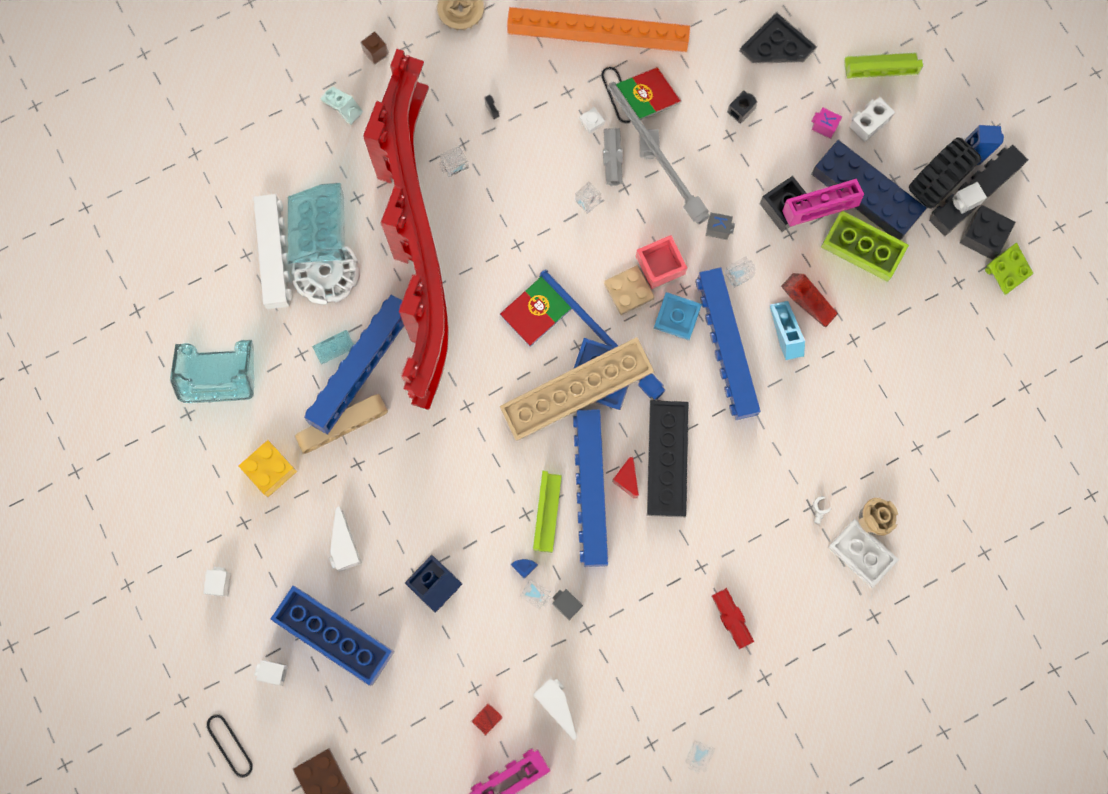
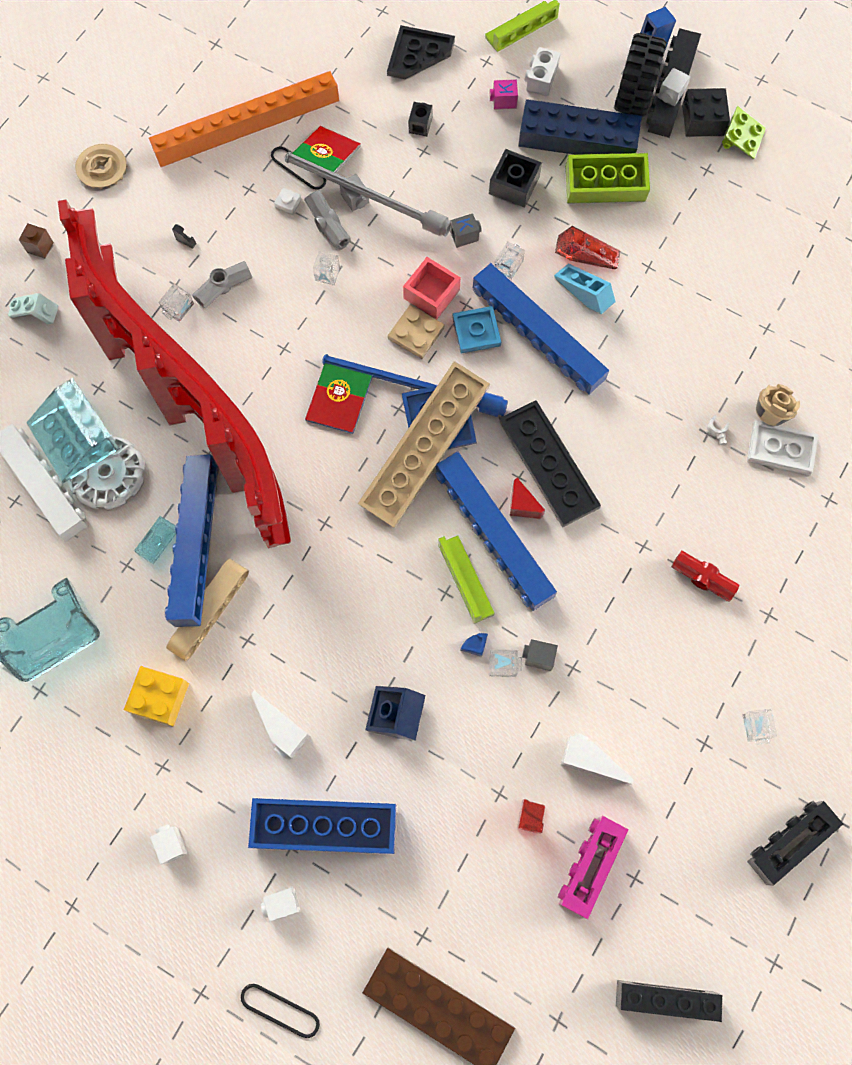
camera: 30 degrees left, 5 degrees down
(510, 162) = (212, 288): none -> light grey piece
(823, 202) = (549, 153): dark pink brick -> none

